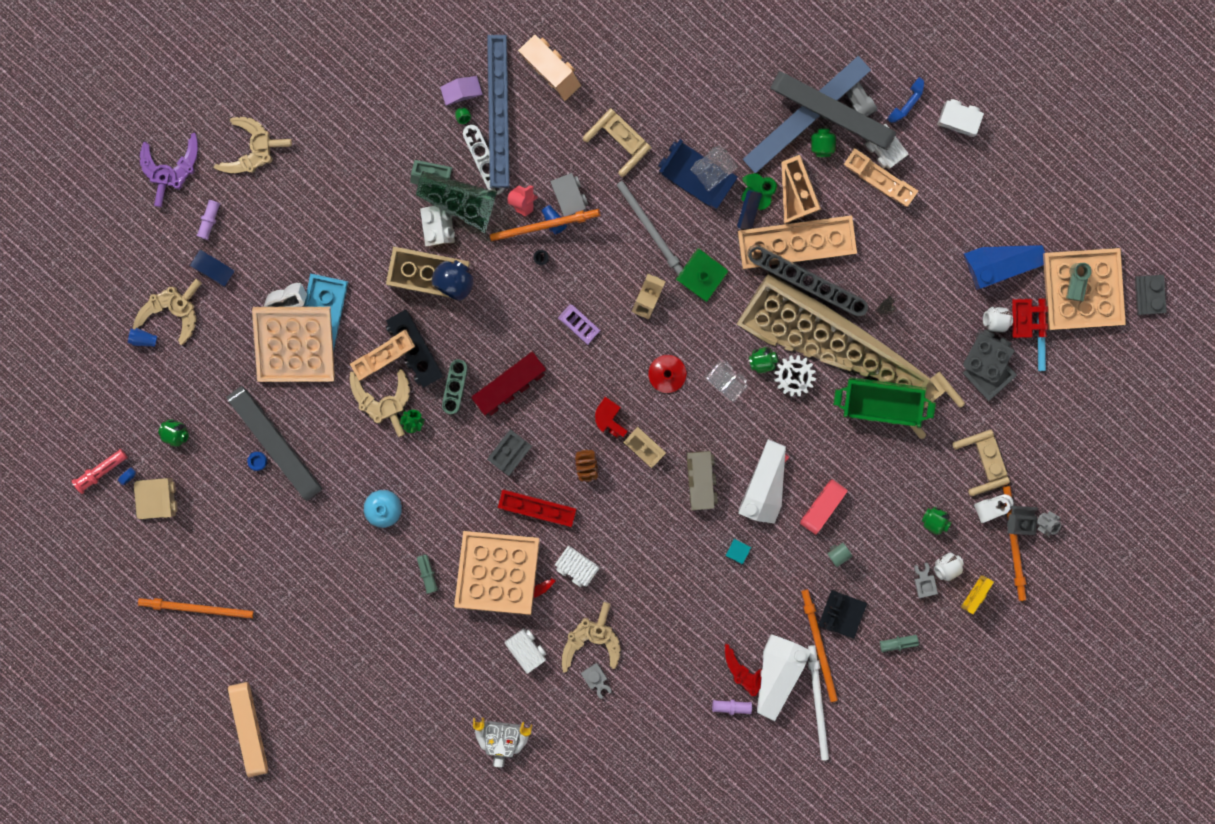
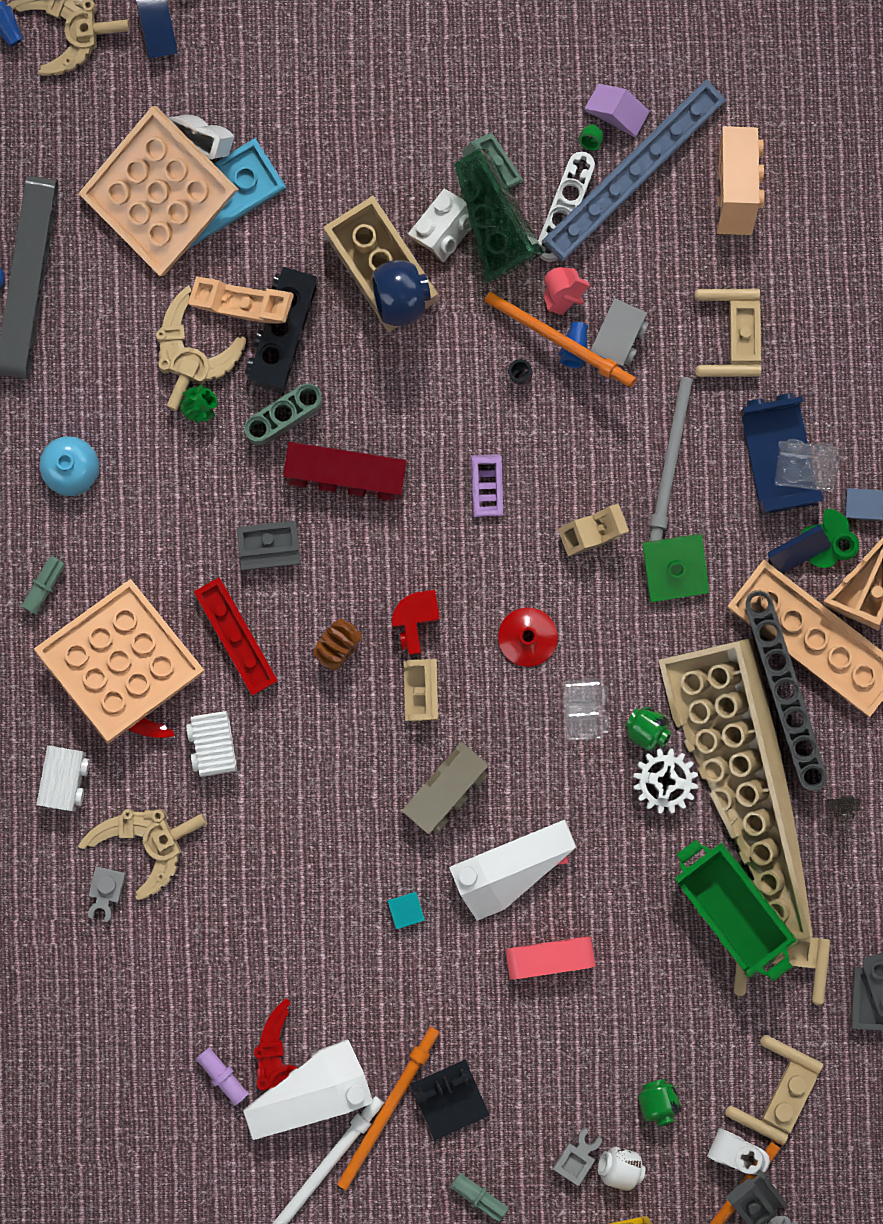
camera: 40 degrees right, 5 degrees down
(839, 554) = (514, 1027): sand green piece -> none

